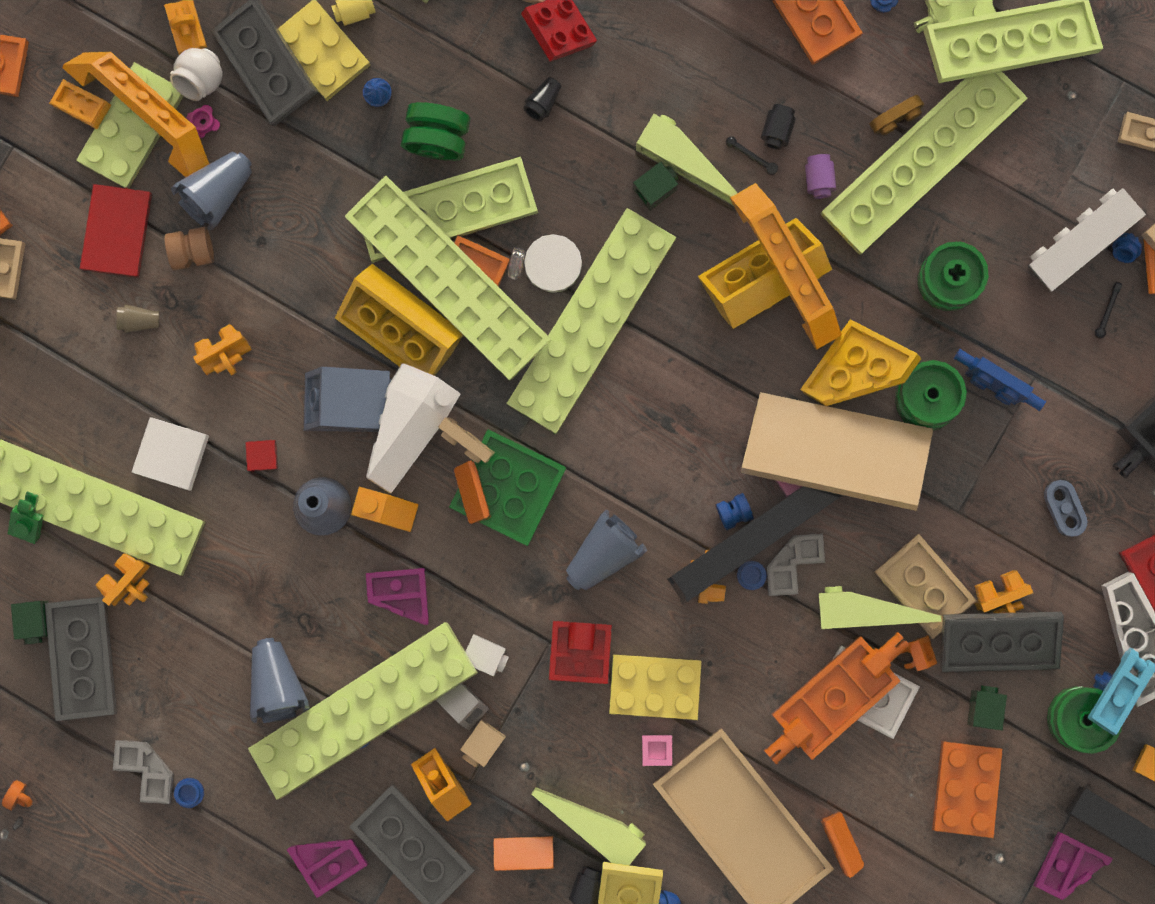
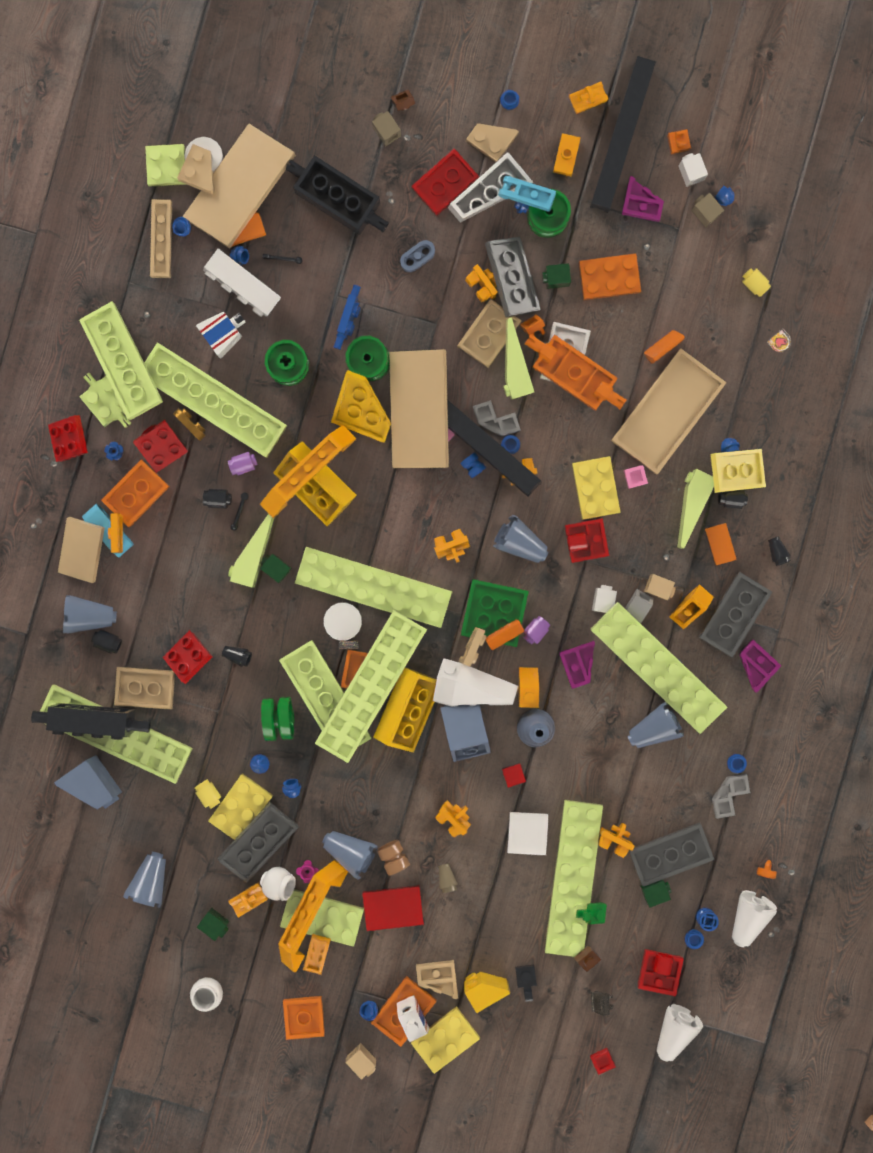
camera: 105 degrees left, 5 degrees up
(330, 128) = (291, 788): none -> blue plate
(466, 542) = (536, 630): none -> medium lavender brick
(618, 449) = (451, 549): none -> light orange hips
(875, 64) = (160, 445): none -> red plate
(1020, 194) = (221, 332): none -> torso

